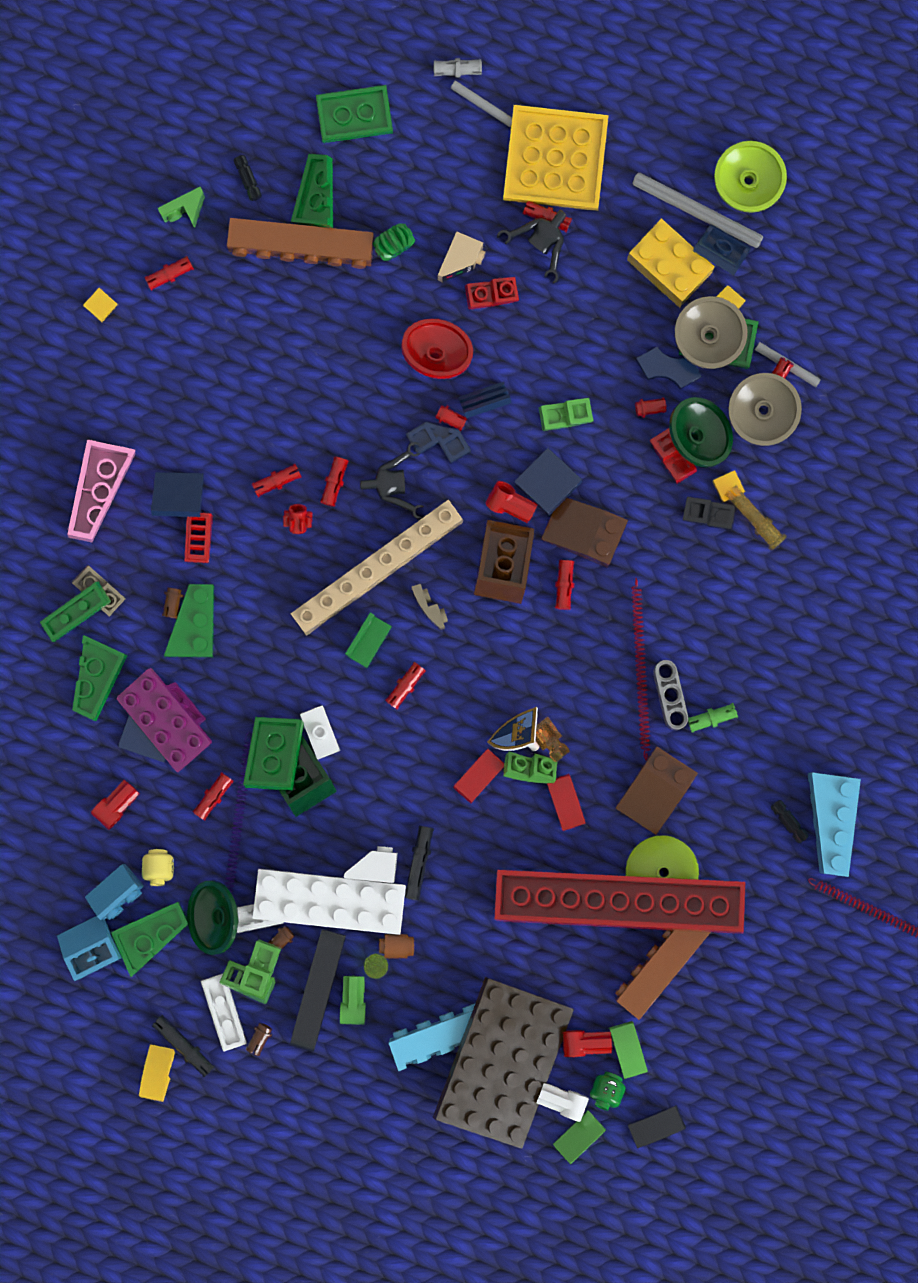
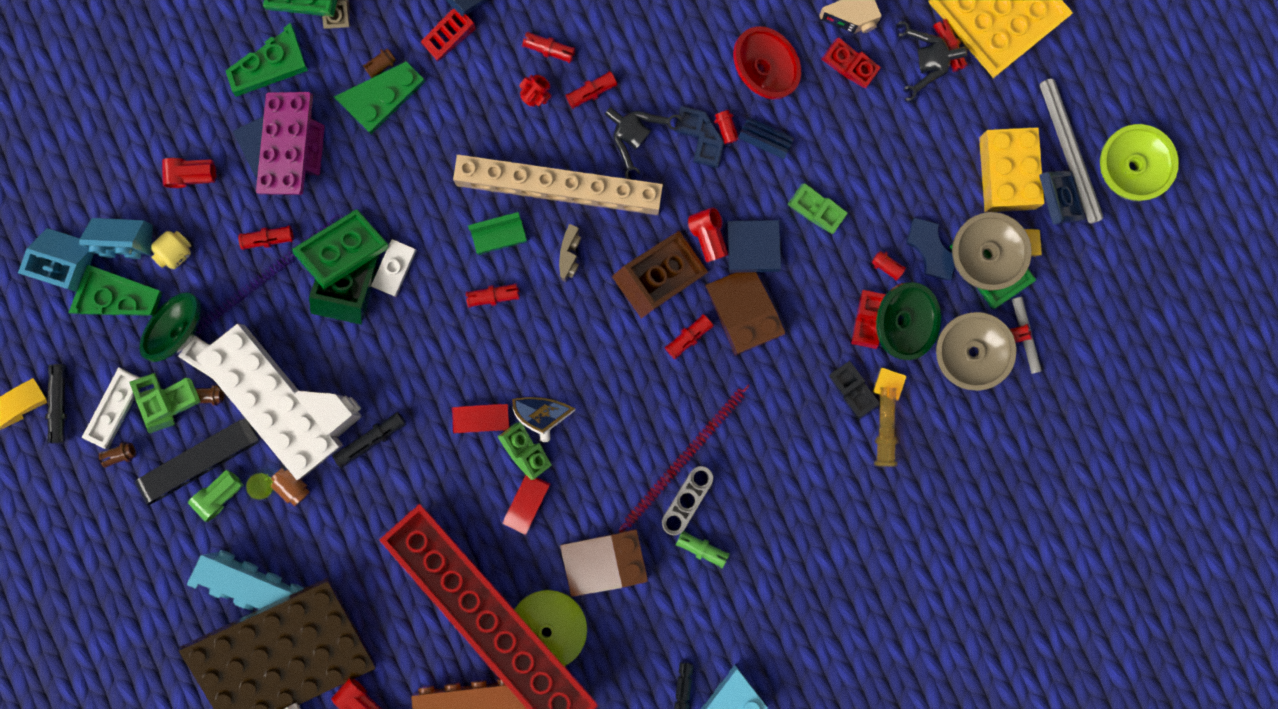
camera: 40 degrees right, 0 degrees up
(548, 737) = (561, 439): clear orange plate -> none

